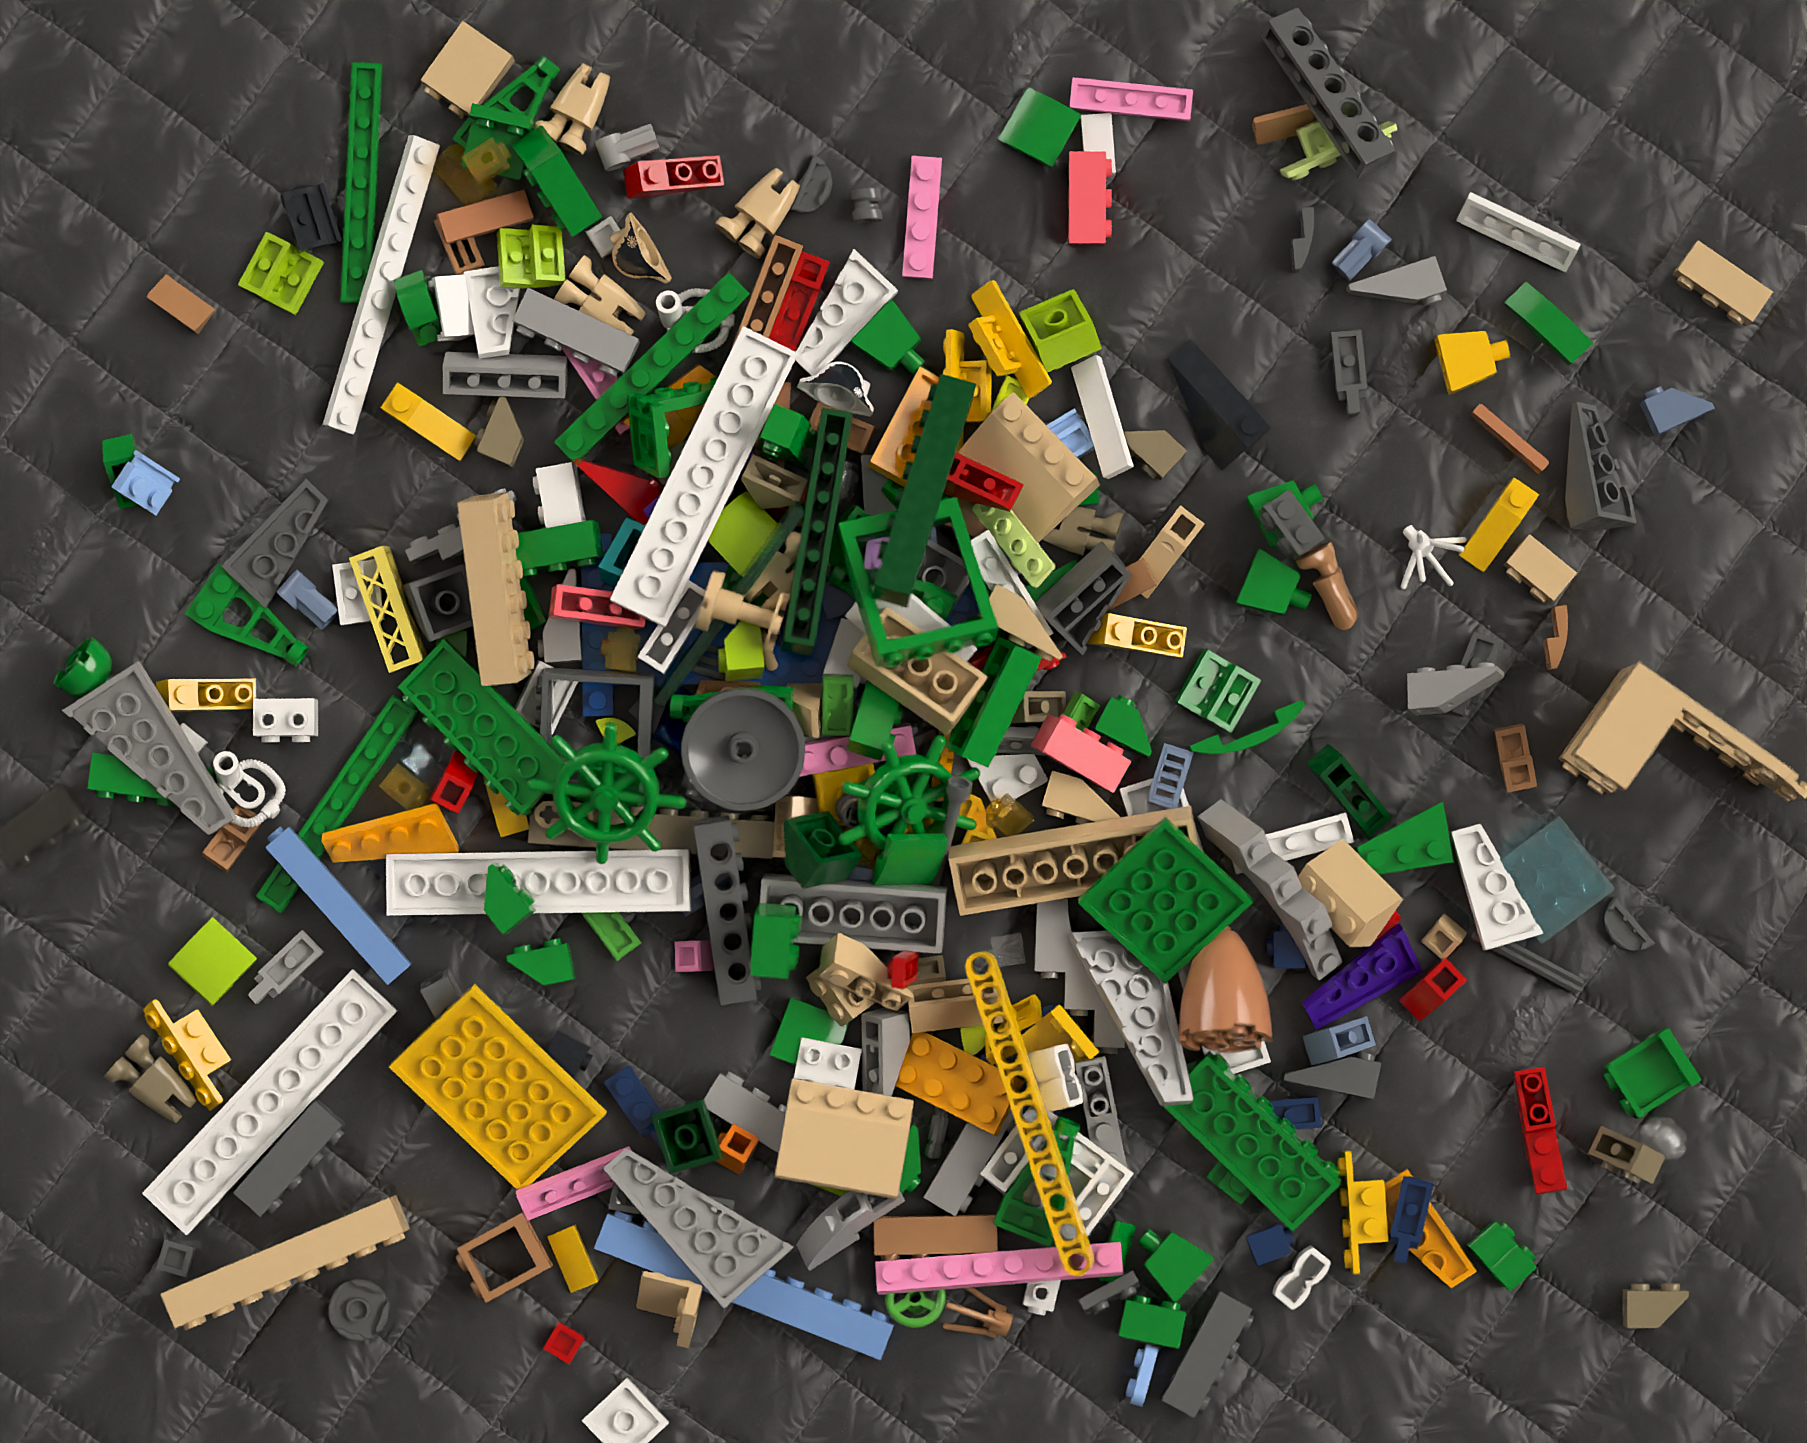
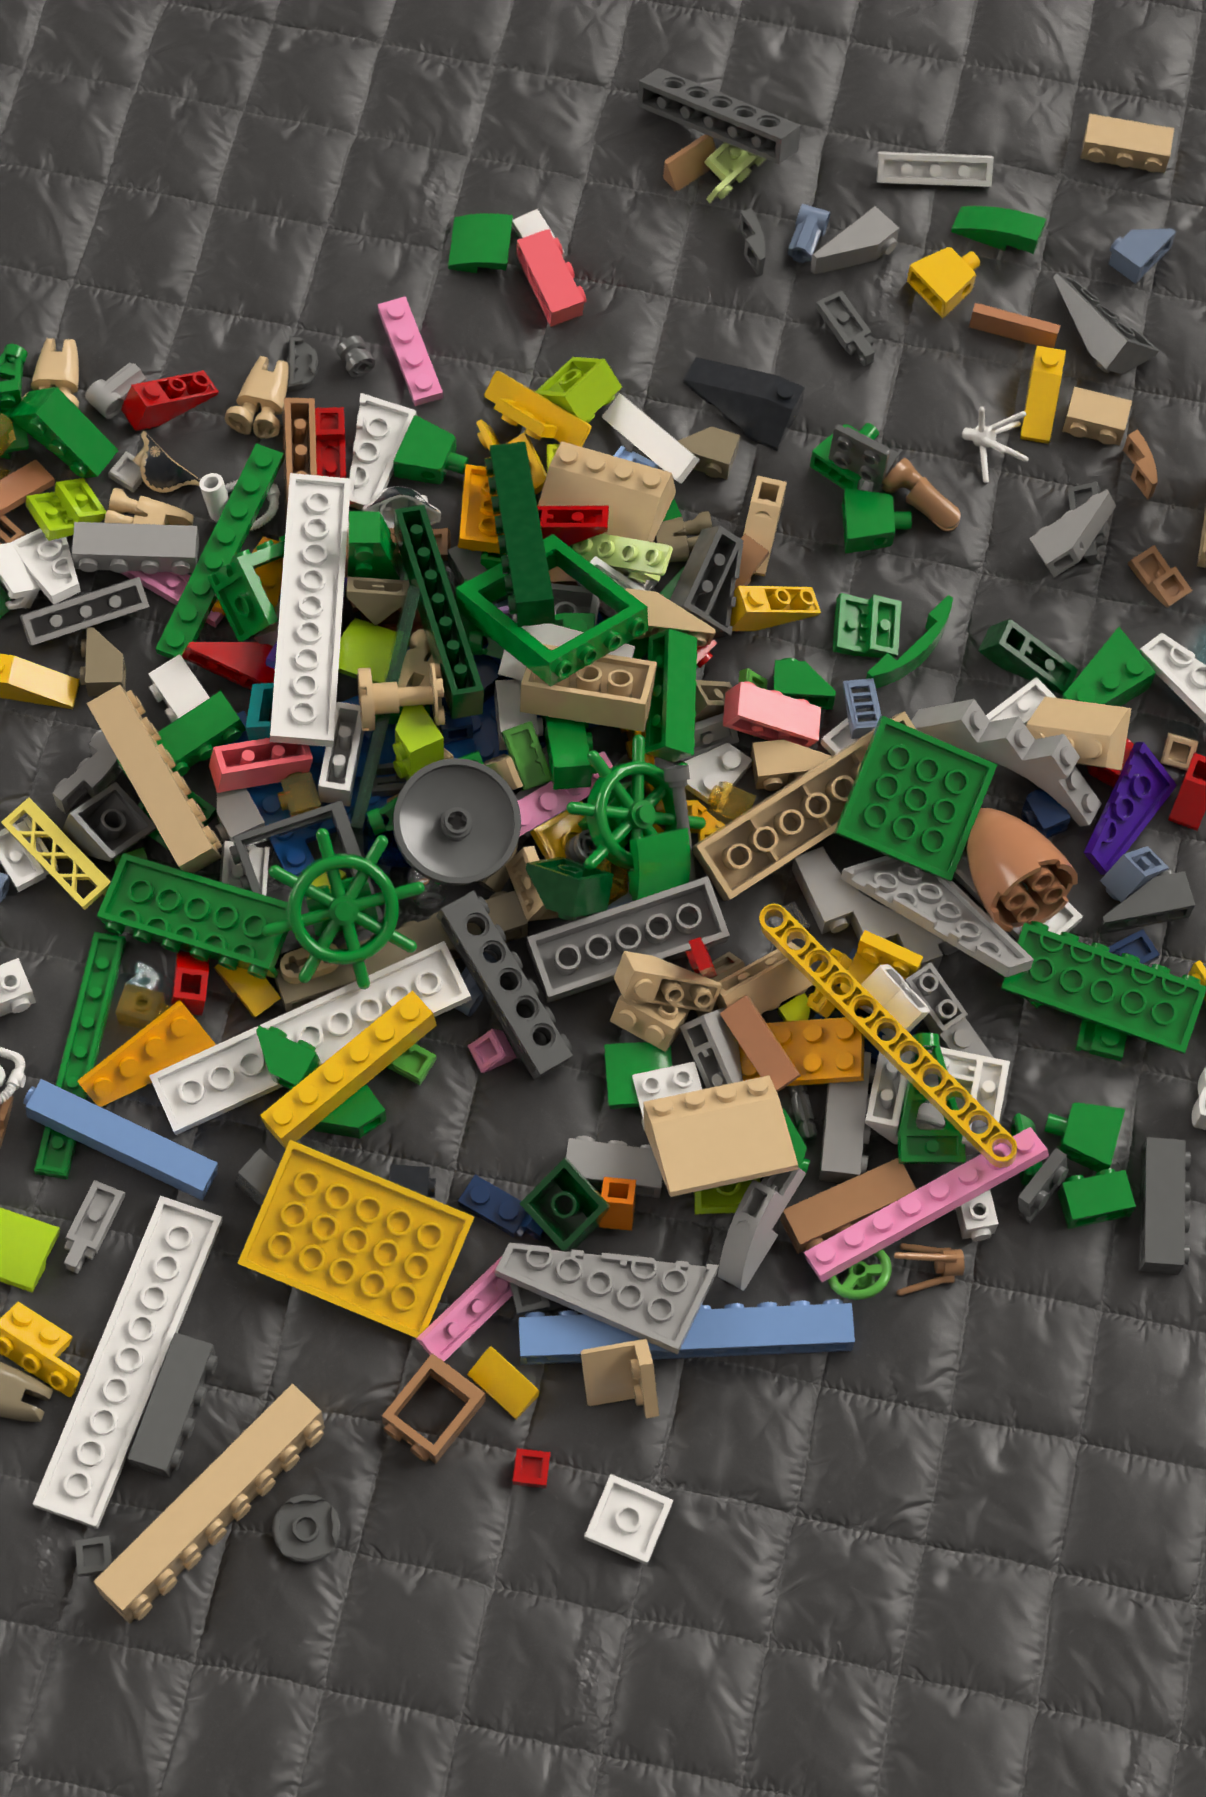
camera: 30 degrees left, 20 degrees down
(553, 936) = (349, 1069): none -> yellow brick
(773, 940) = (566, 978): green brick -> none
(921, 1064) = (759, 1043): none -> nougat tile
(1131, 99) = (551, 191): bright pink plate -> none
(1145, 1362) = (1115, 1261): light blue plate -> none
(1269, 1243) = (1167, 1080): dark blue brick -> none

